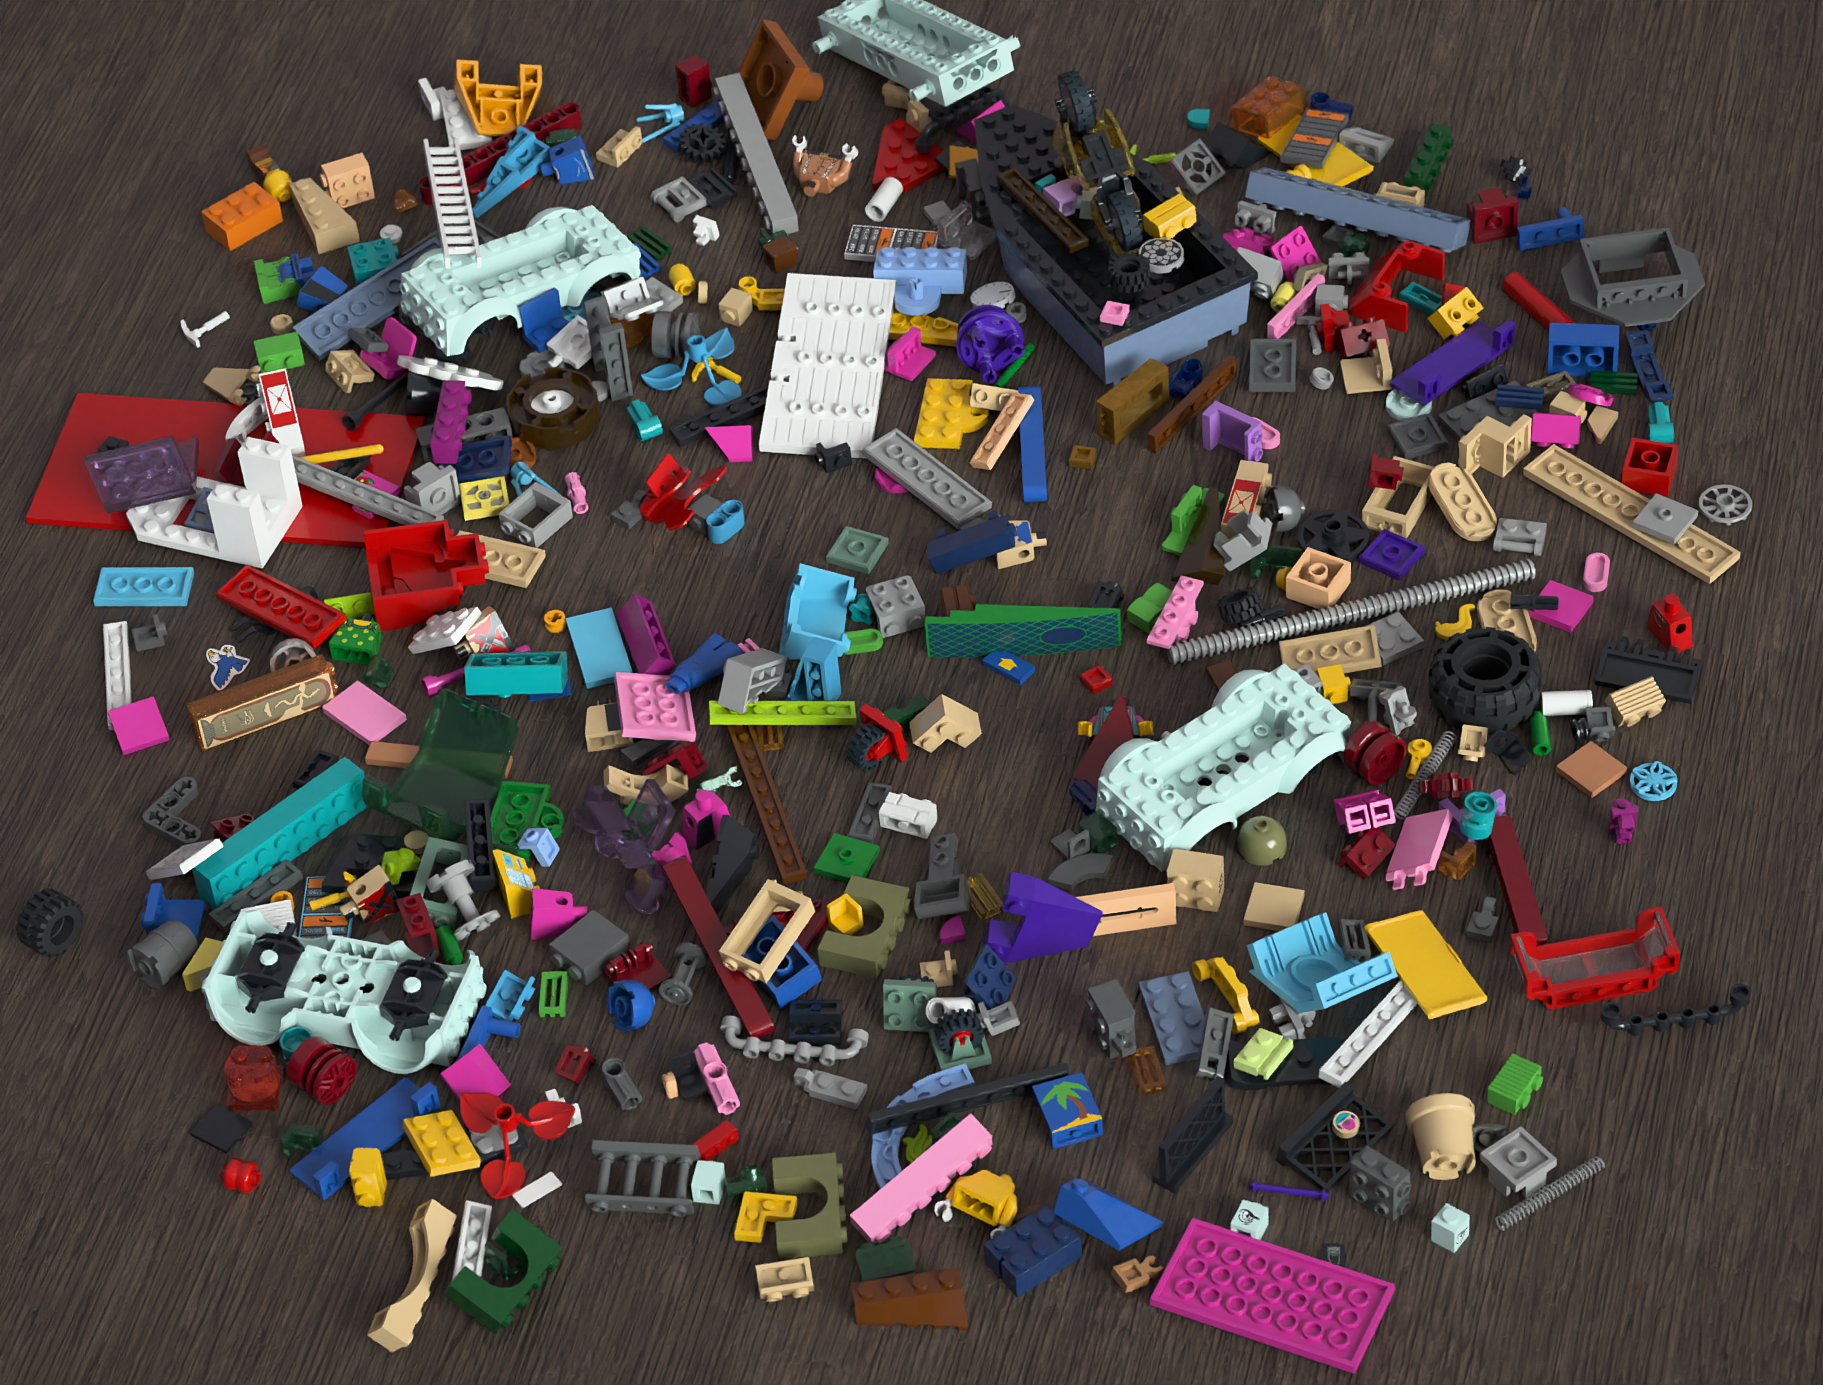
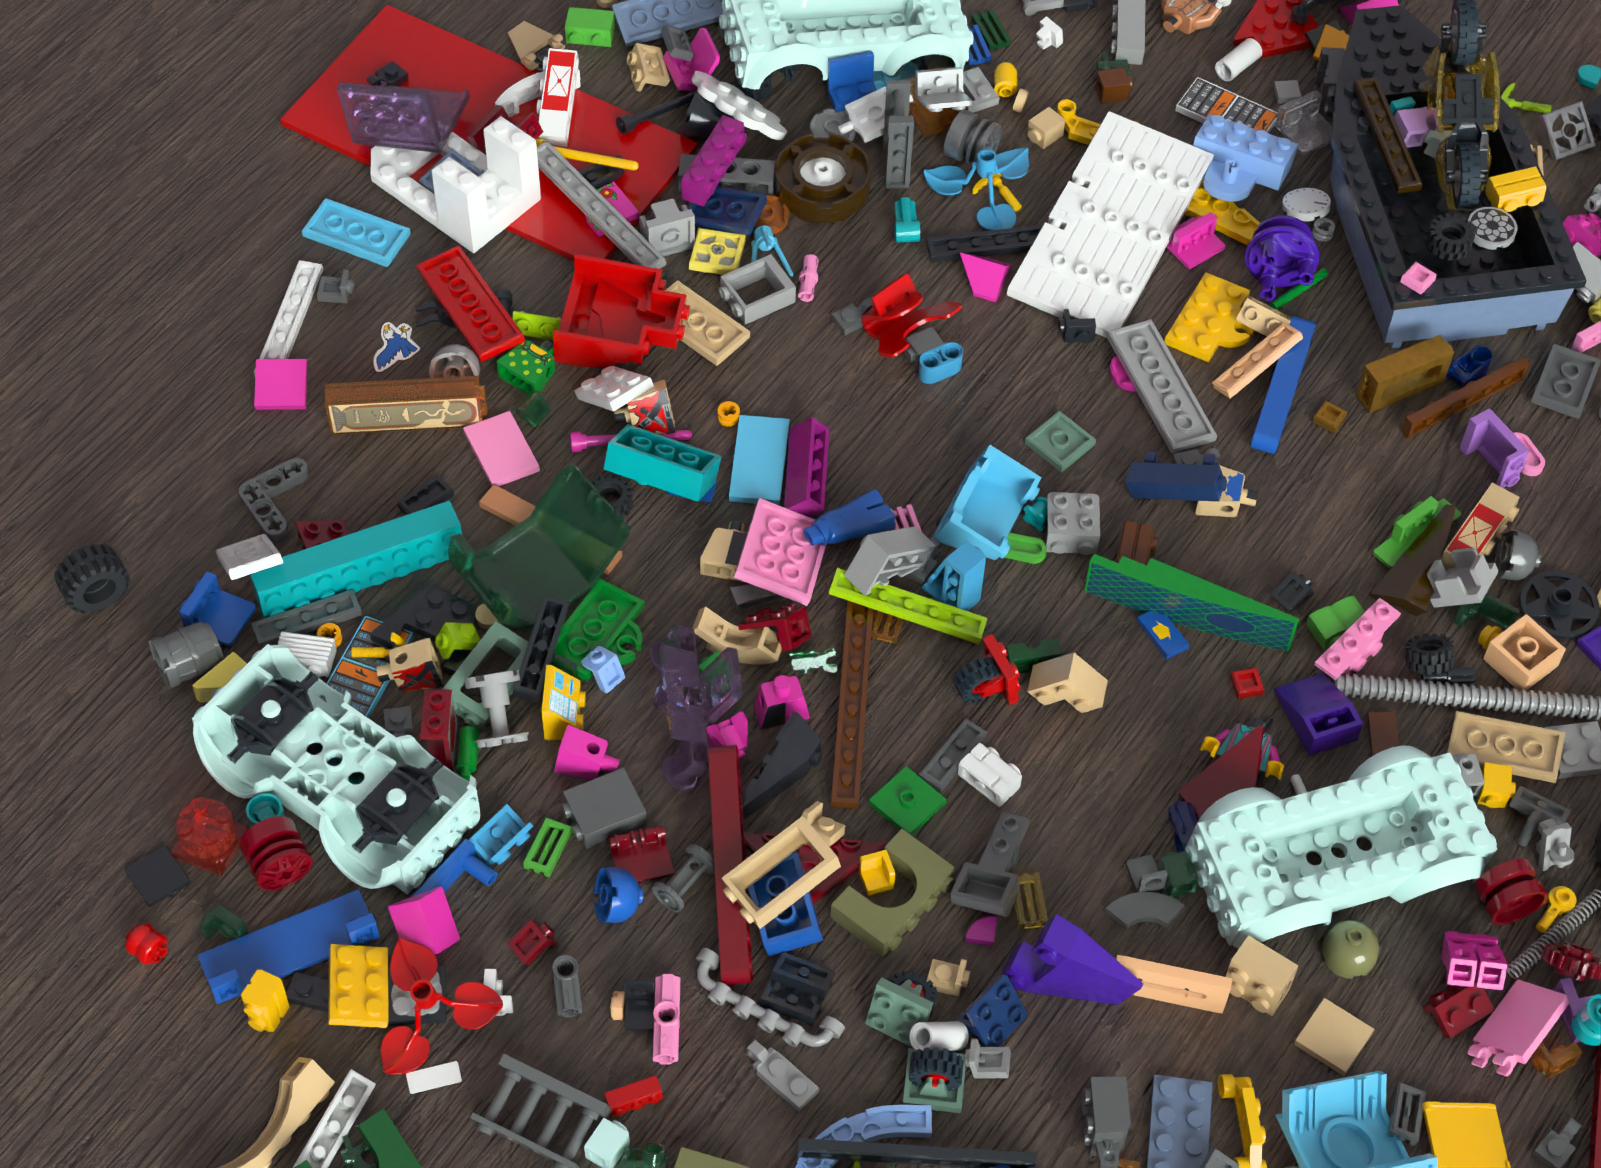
camera: 15 degrees right, 10 degrees up
(602, 389) = (877, 172): light grey tile -> none
(1167, 680) = (1319, 713): none -> dark purple slope

